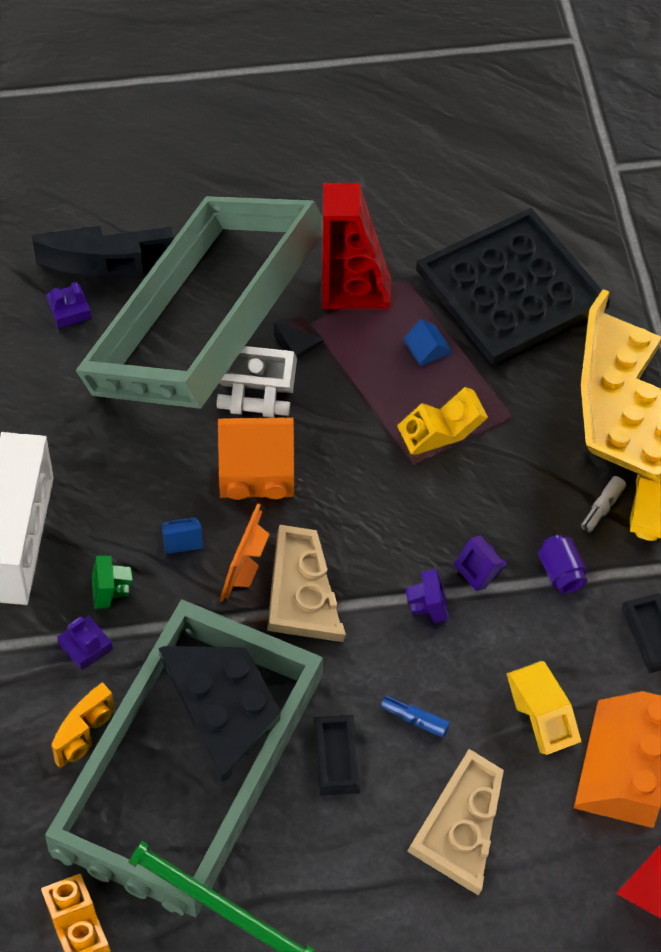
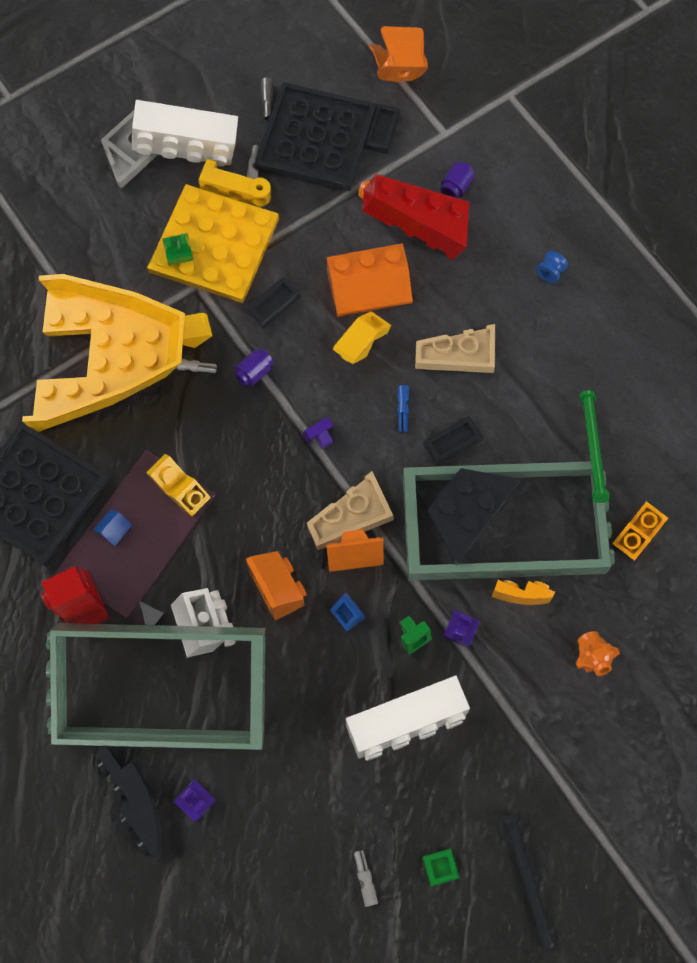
camera: 115 degrees left, 15 degrees up
(479, 563) = (279, 415): dark purple tile -> none

